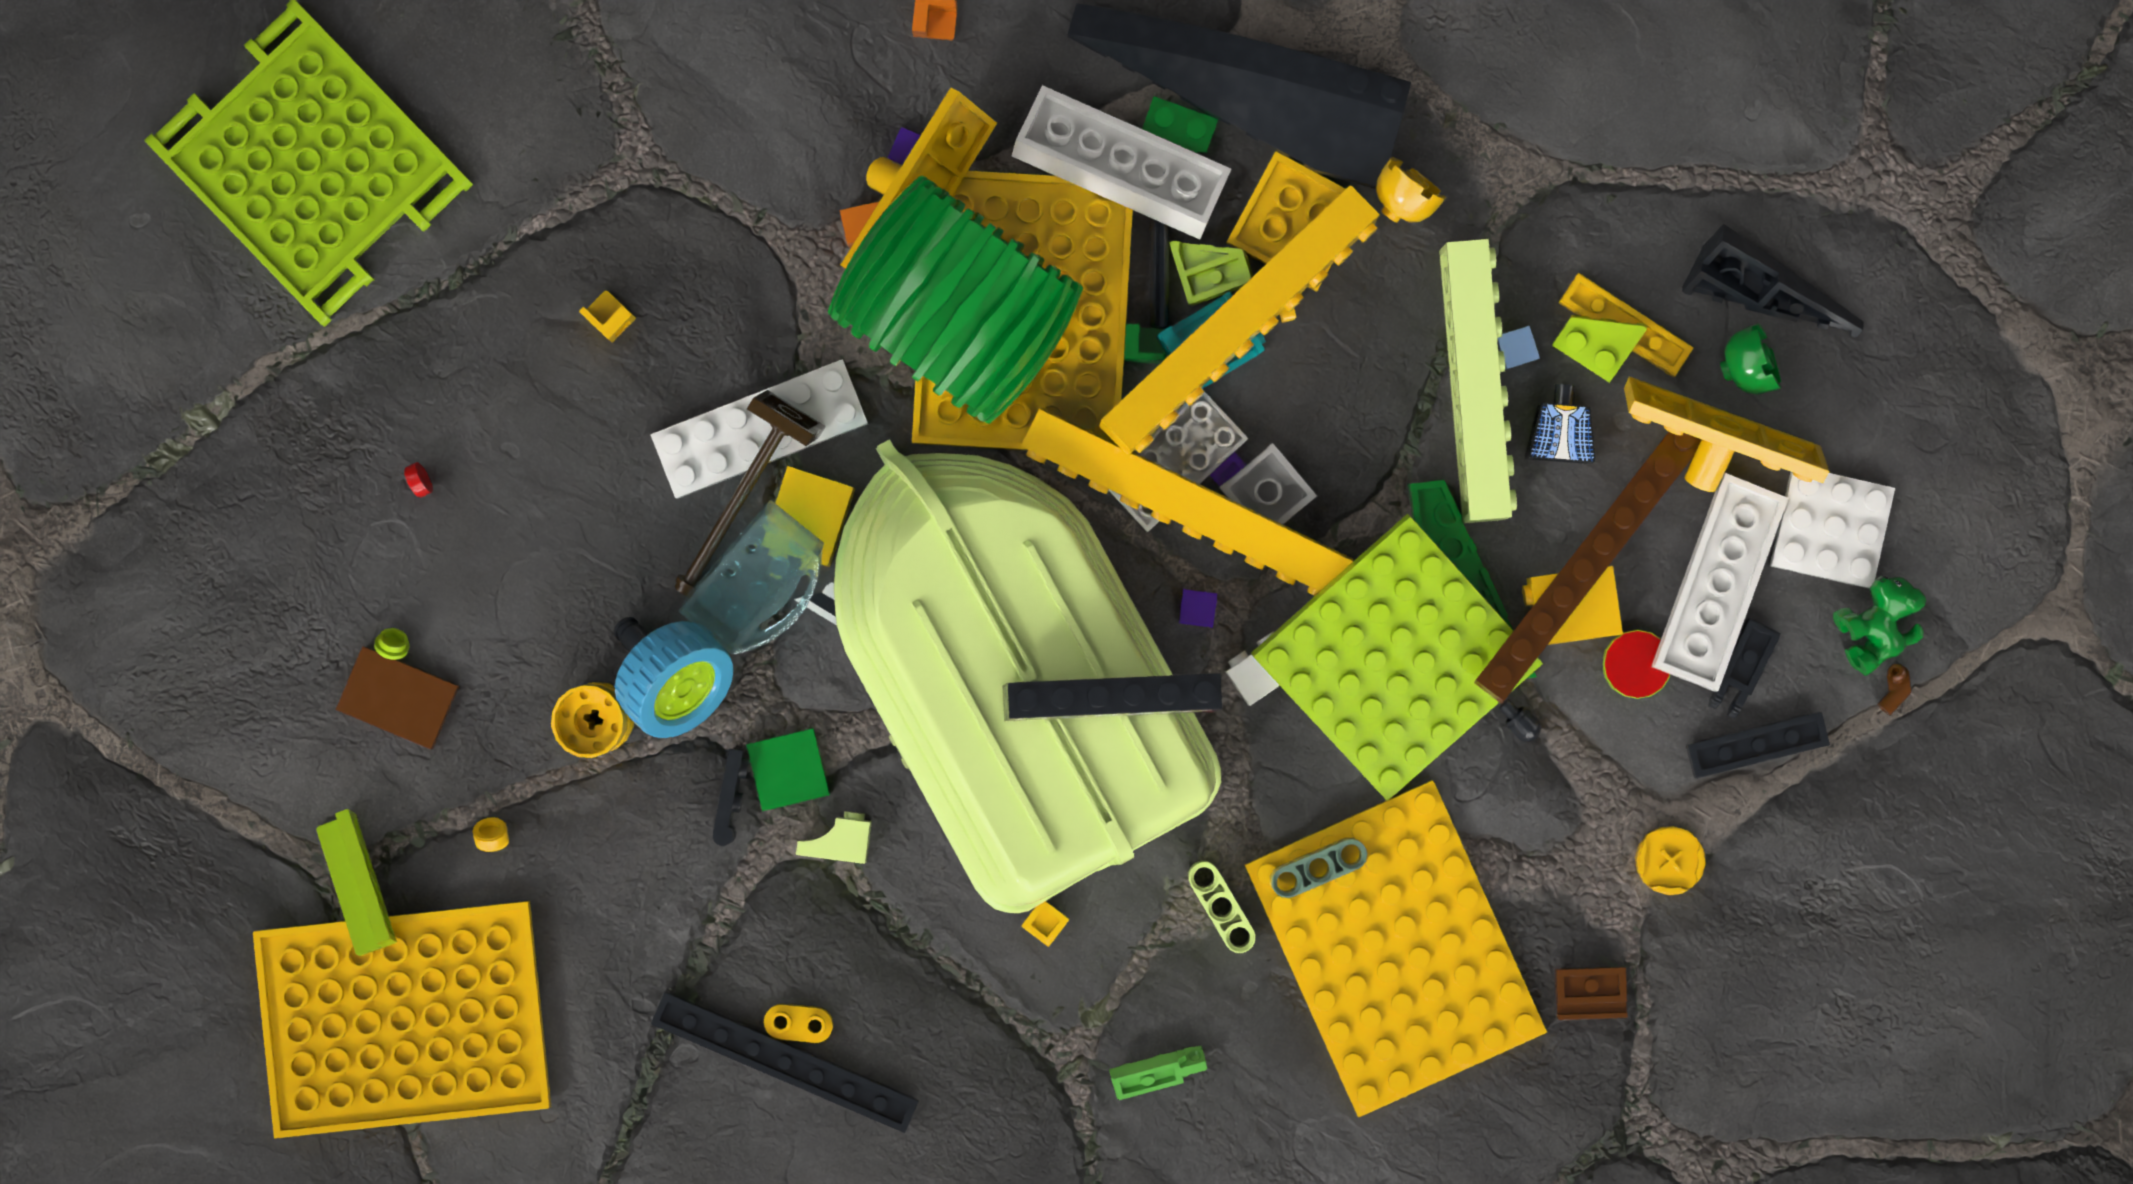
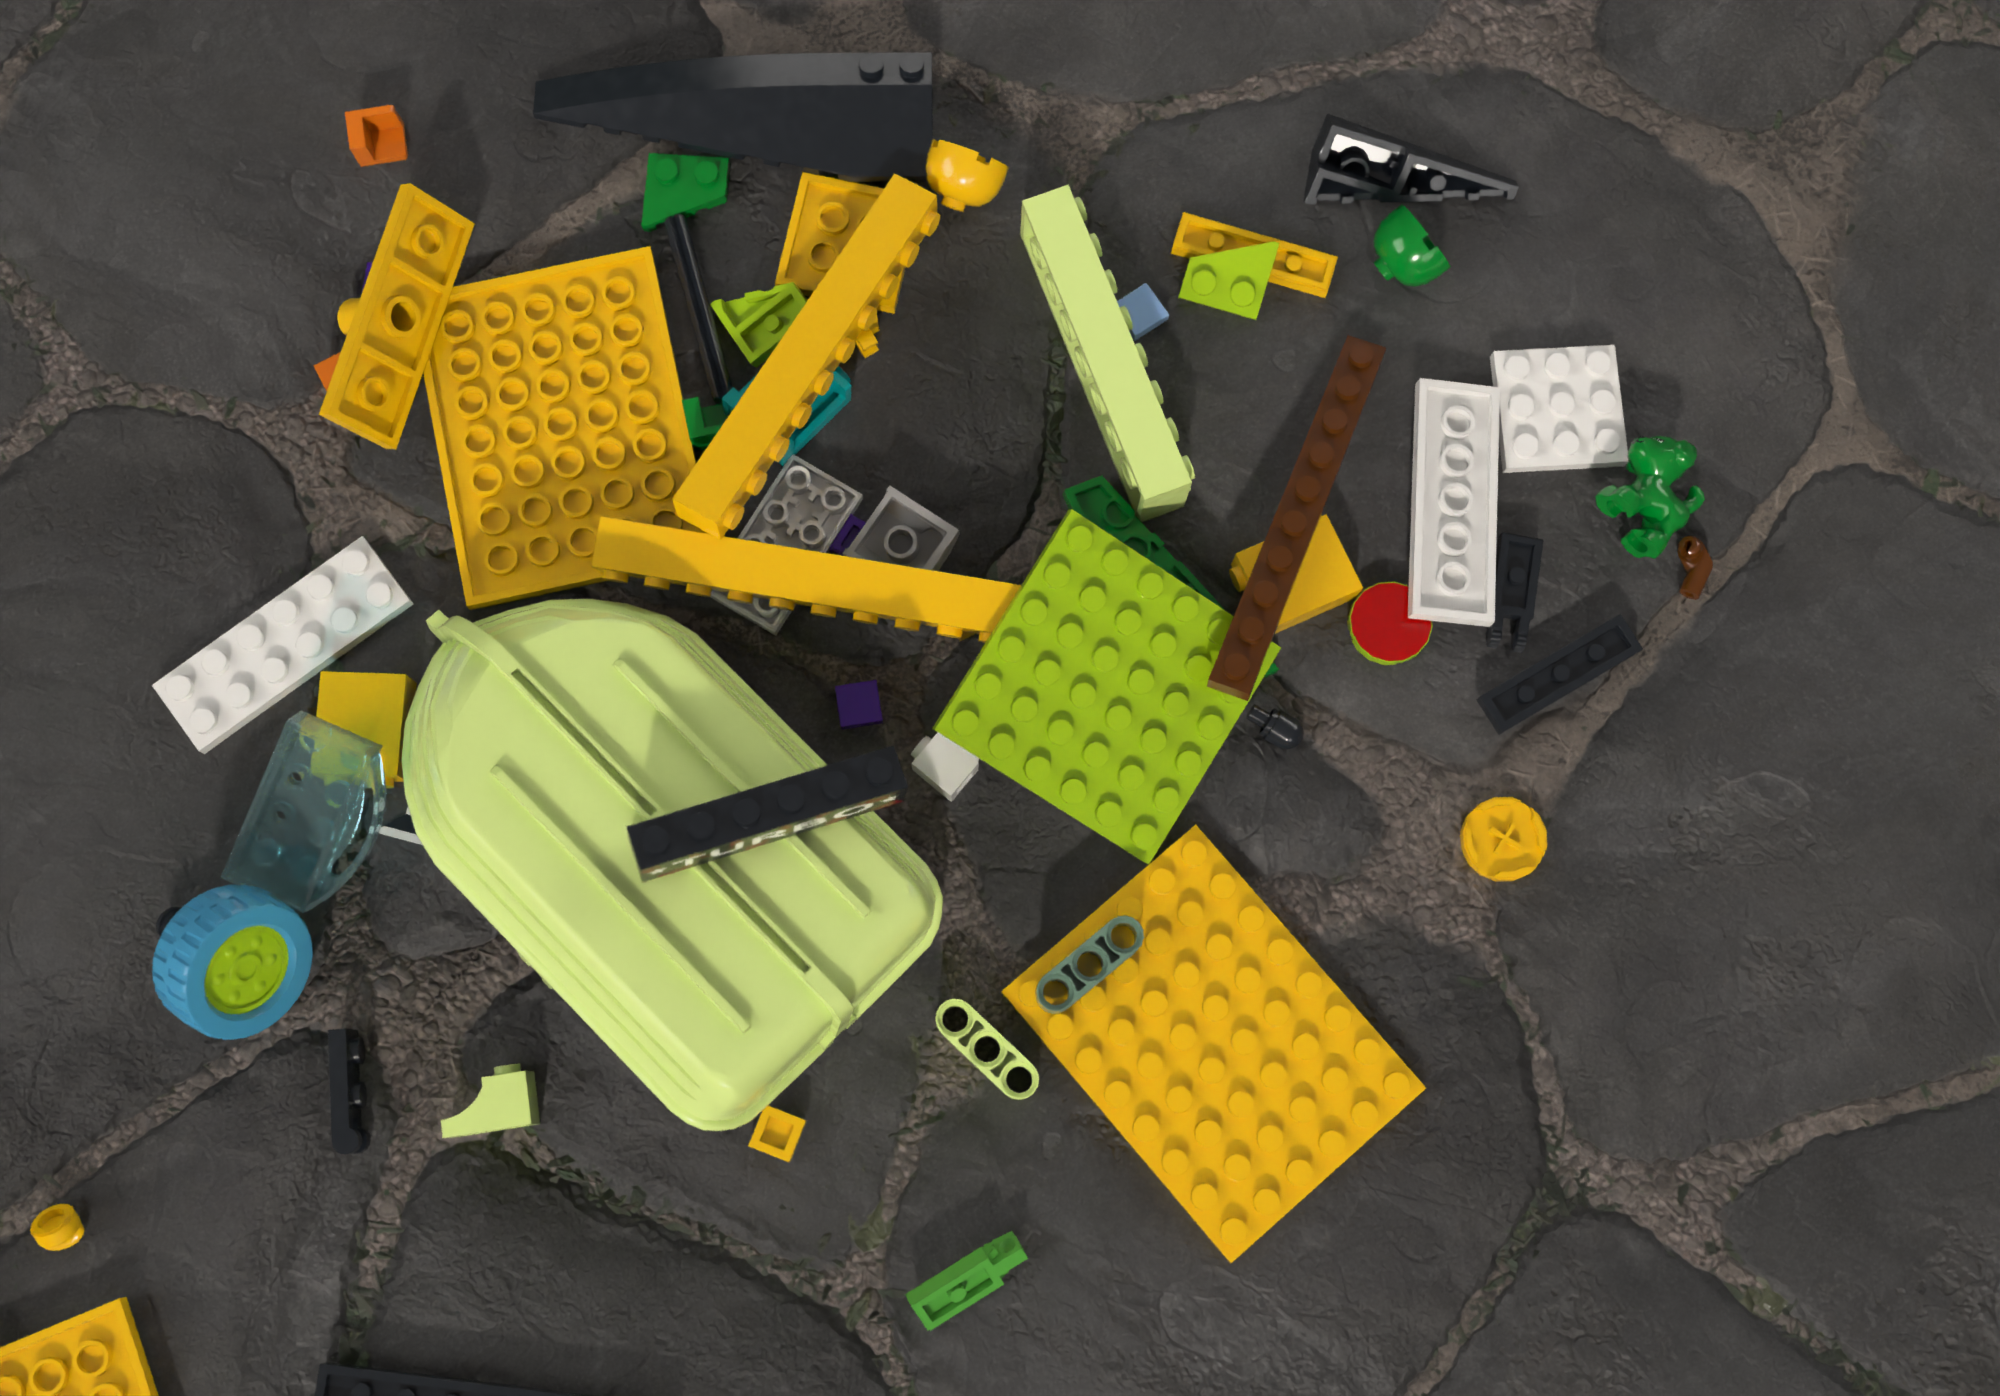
camera: 20 degrees left, 10 degrees down
(576, 729) = (125, 1049): yellow wheel -> none
(608, 316) = (73, 565): yellow panel -> none
(784, 421) = (298, 617): dark brown tile -> none
(788, 769) = (413, 1038): green tile -> none
(798, 1023) = (502, 1354): yellow plate -> none
(954, 300) = (452, 395): green wheel -> none
(1120, 162) = (627, 229): white arch -> none
(1562, 430) = (1220, 385): torso -> none
(1591, 993) = (1463, 1024): reddish brown plate -> none
(1722, 436) = (1404, 340): yellow plate -> none

